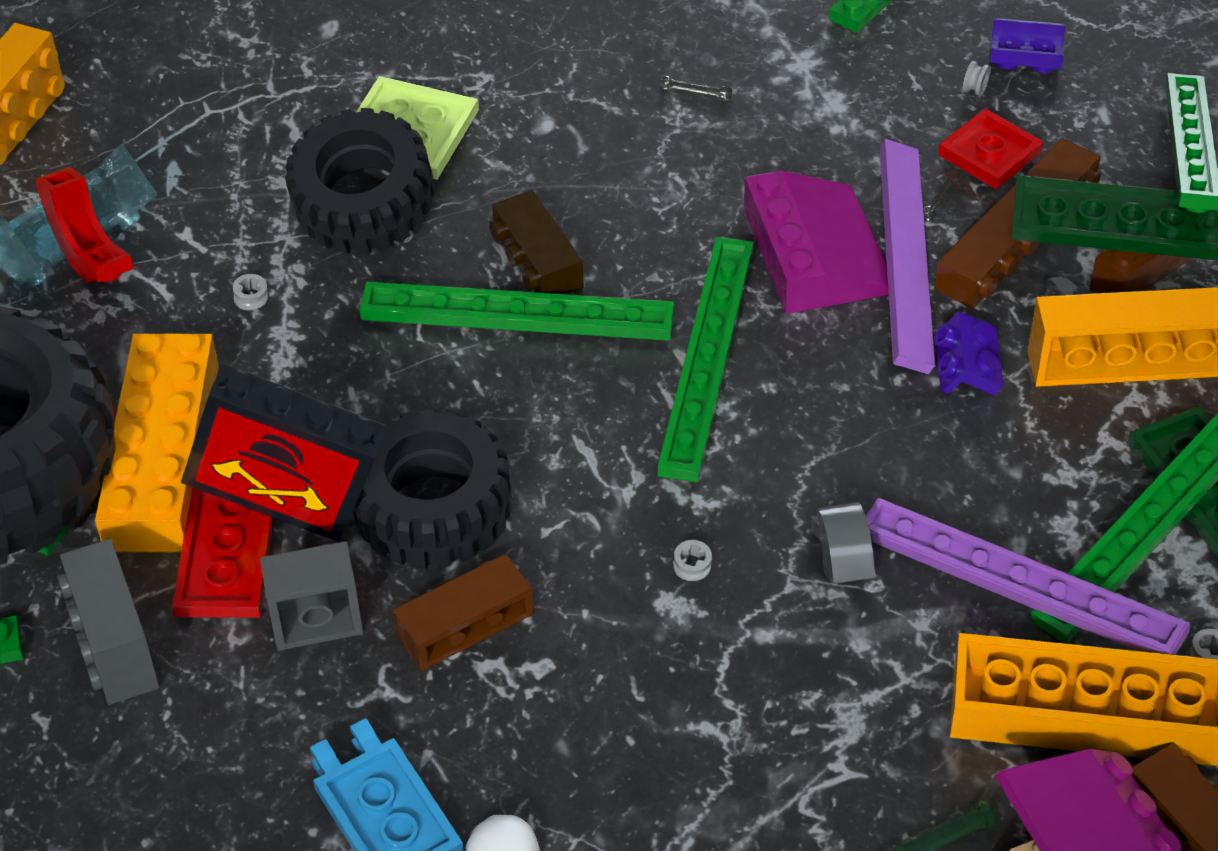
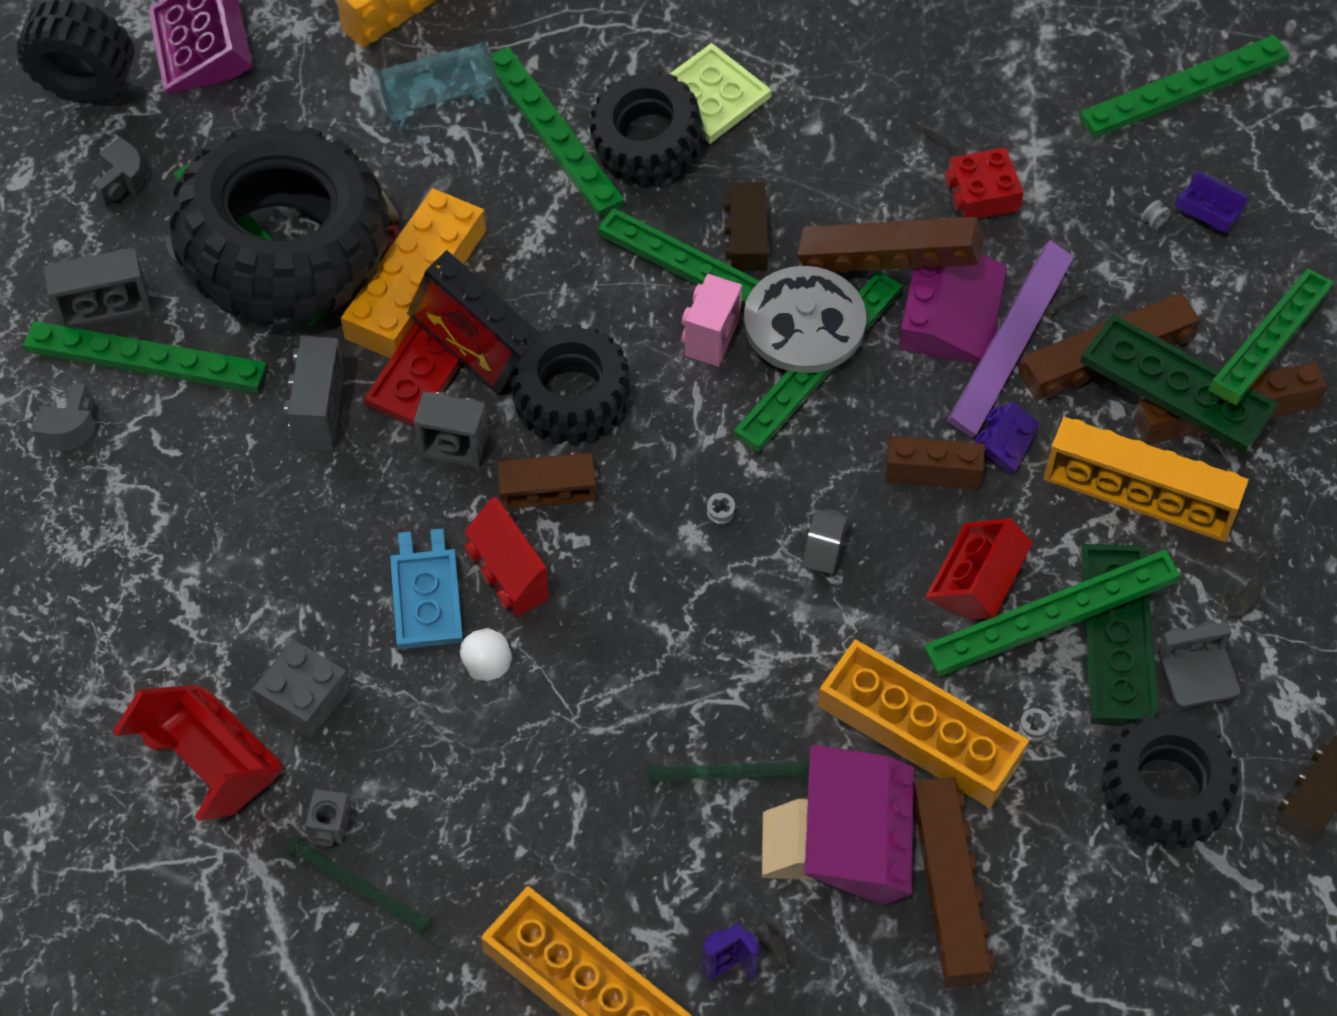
camera: 25 degrees right, 10 degrees up
(78, 229) = (439, 89): red arch -> none
(247, 283) = (537, 175): light grey bush -> none
(256, 237) = (556, 134): none -> green plate
(471, 719) = (506, 559): none -> red slope
(560, 353) = (712, 319): none -> bright pink brick
(667, 315) = (804, 319): none -> light grey dish
(722, 199) = (892, 245): none -> reddish brown brick
(777, 109) = (984, 184): none -> red brick
(911, 411) = (935, 463): none -> reddish brown brick
(990, 148) = (1128, 278): red plate -> none
(1025, 580) = (932, 620): medium lavender tile -> none
(1038, 500) = (980, 568): none -> red slope

